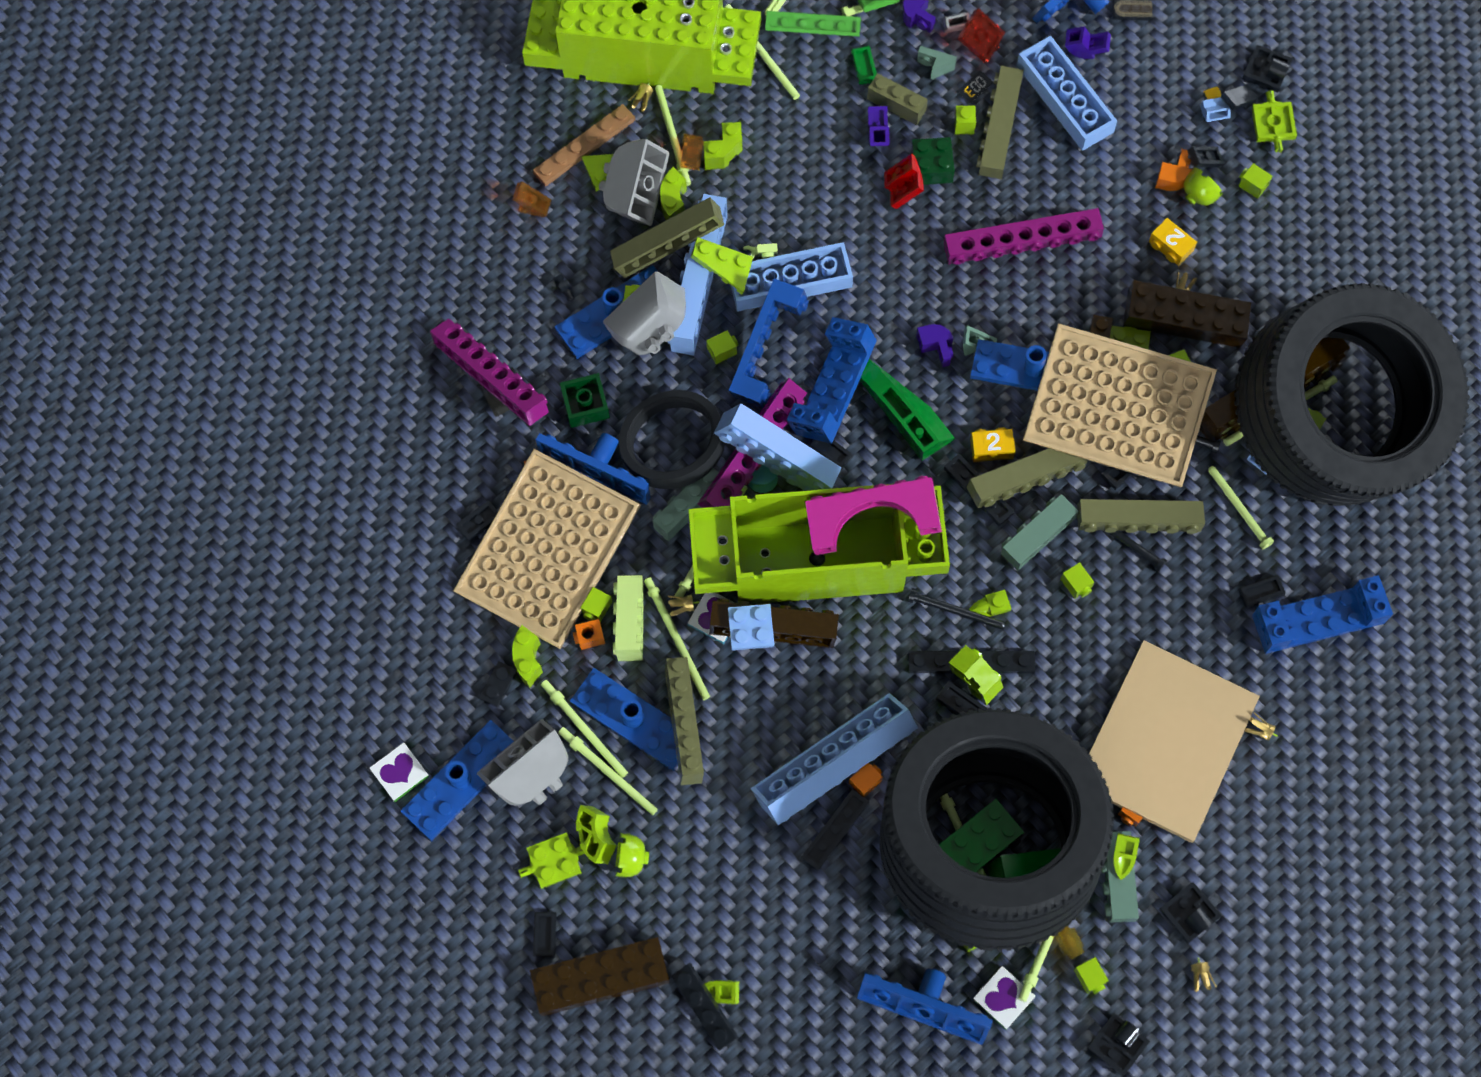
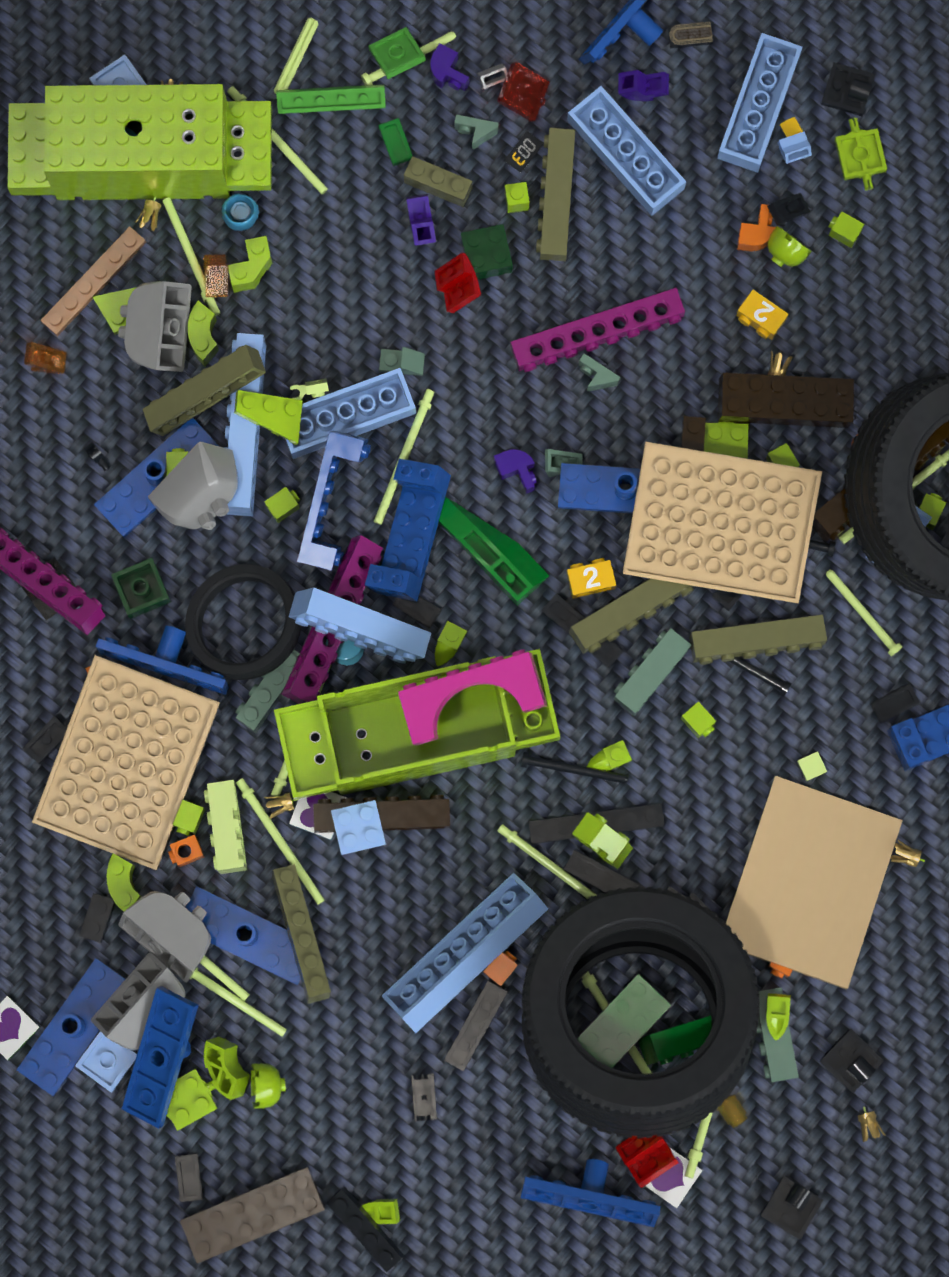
camera: 10 degrees left, 10 degrees up
(485, 814) = (106, 1062): none -> light blue plate
(535, 812) = (160, 1057): none -> blue plate
(561, 699) = (169, 930): none -> light grey hips
(720, 102) = (240, 212): none -> dark azure hair
(778, 889) = (424, 1097): none -> hinge
(852, 240) = (408, 360): none -> sand green slope
(858, 477) = (448, 643): none -> lime plate
(860, 281) = (424, 406): none -> yellowish green bar
(892, 663) = (550, 865): none -> yellowish green bar
(983, 974) = (646, 1157): none -> red slope
(1023, 275) = (602, 378): none -> sand green slope
(1091, 976) = (757, 1142): lime brick -> none
(1178, 637) = (812, 766): none -> yellowish green tile
(1188, 68) = (759, 102): none -> light blue brick
(1239, 97) = (819, 130): black tile -> none

